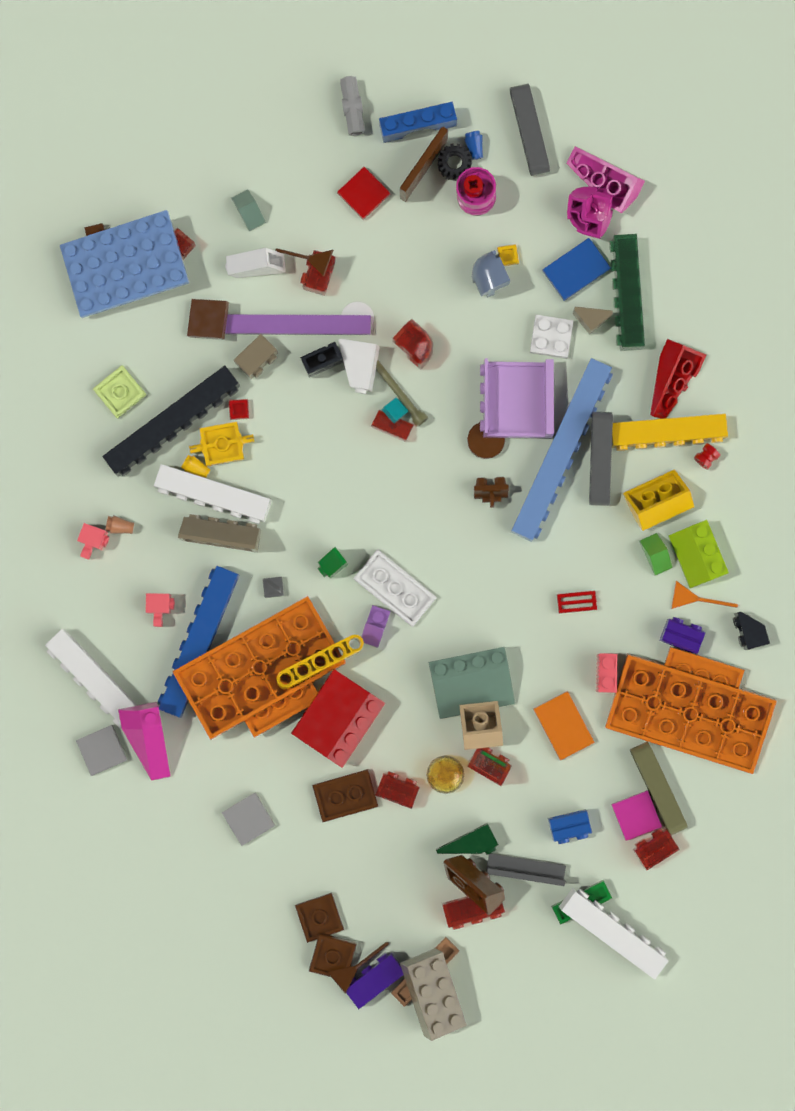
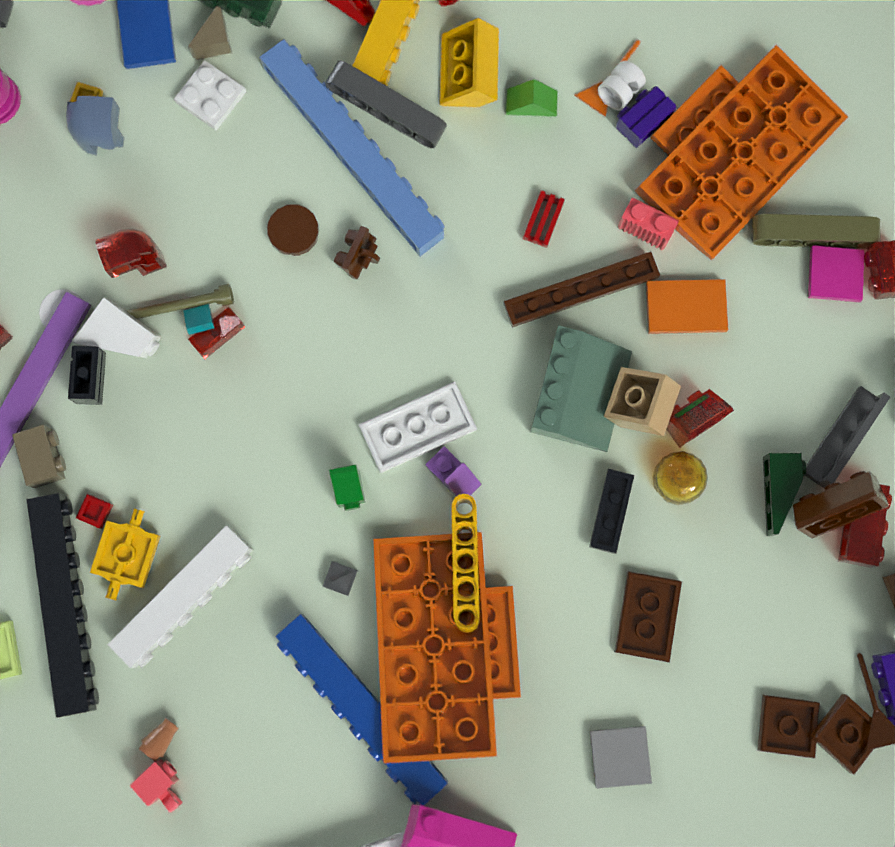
camera: 65 degrees left, 5 degrees down
(158, 605) = (287, 739): coral brick -> none
(195, 466) = (134, 602): yellow cone -> none
(220, 534) = (237, 613): dark tan slope -> none
(338, 718) = (548, 576): red slope -> none
(397, 790) = (673, 545): clear red brick -> none
(401, 740) = (611, 511): none -> black plate
(517, 399) = (264, 167): lavender panel -> none
(540, 650) = (581, 289): none -> reddish brown plate
(569, 826) = (815, 357): blue brick -> none
(695, 609) = (621, 85): none -> white wheel
(698, 554) = (557, 51): lime slope -> none
(751, 631) = (677, 38): black slope -> none

